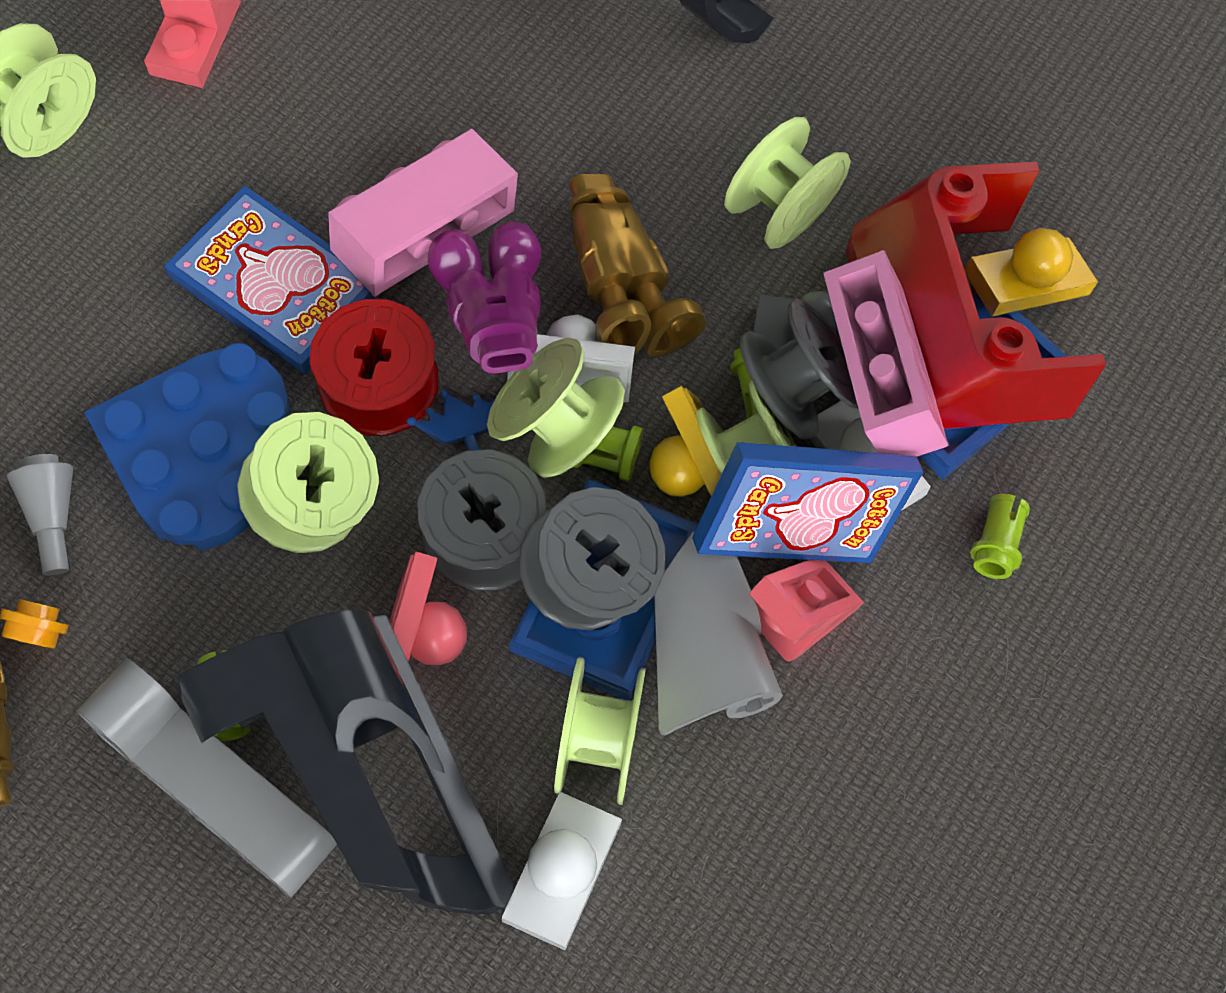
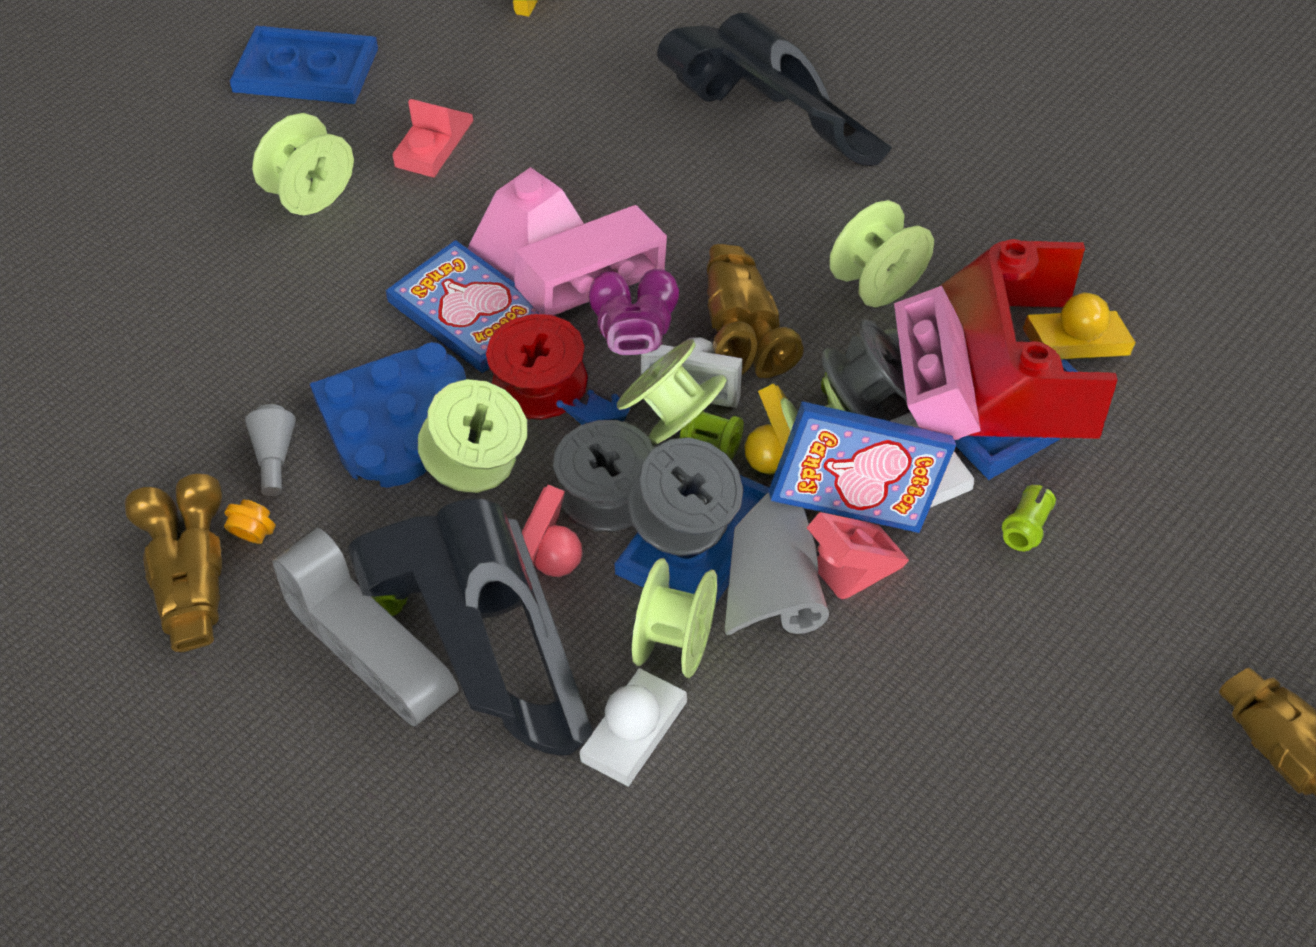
camera: 15 degrees right, 15 degrees down
(327, 155) = (519, 215): none -> bright pink slope

